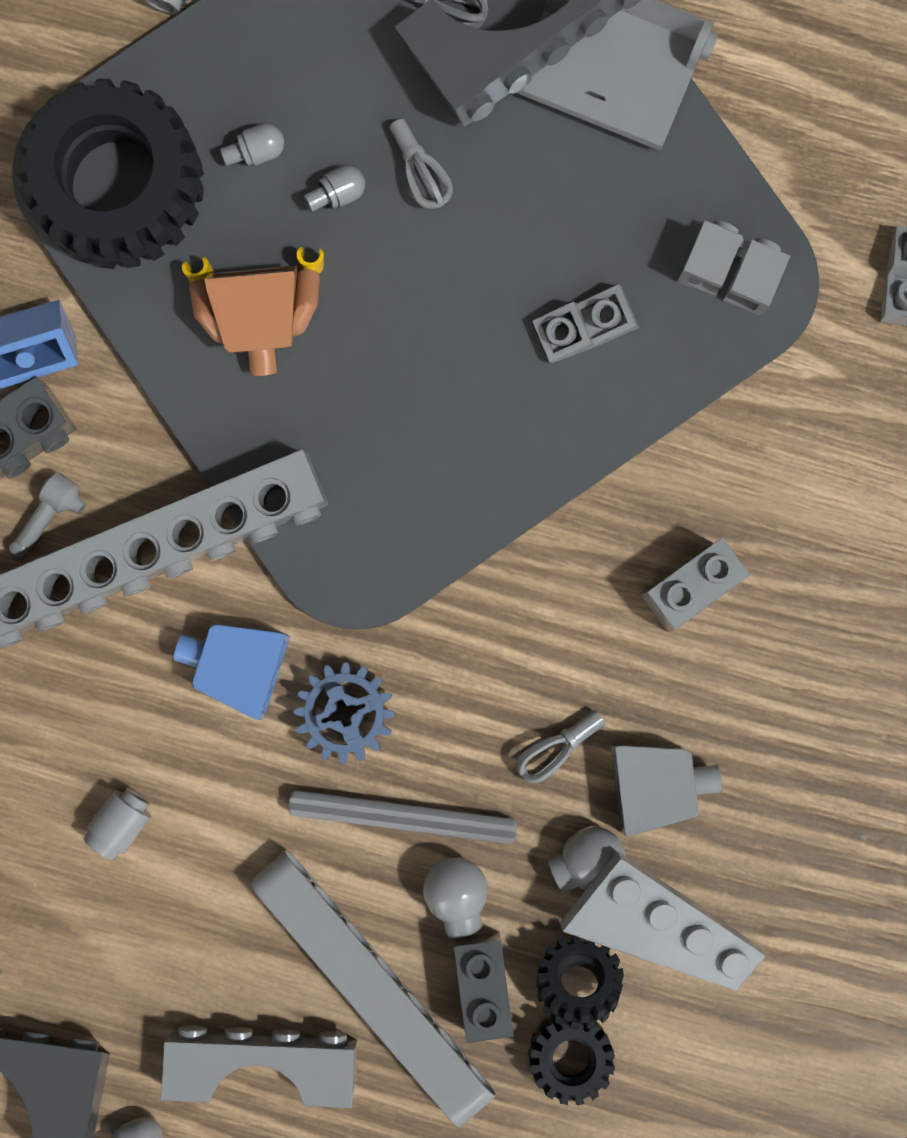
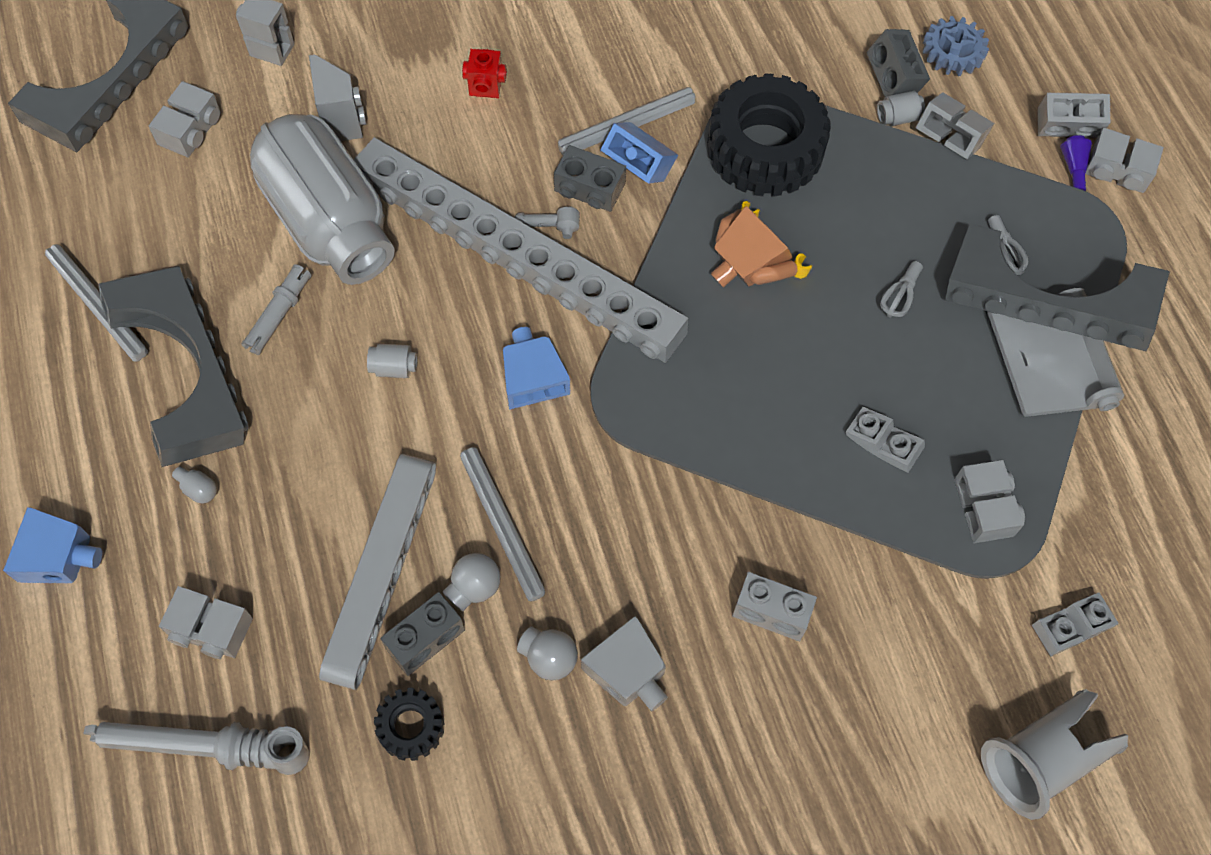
camera: 55 degrees right, 20 degrees down
(255, 145) = (843, 199): light grey cylinder -> none
(318, 1067) = (305, 566): light grey arch -> none
(336, 188) = (853, 255): light grey cylinder -> none
(352, 734) = (544, 461): sand blue gear -> none
(569, 737) = (621, 594): light grey piece -> none
(573, 1008) = (477, 680): black tyre -> none
(655, 922) = (536, 720): light grey wing -> none

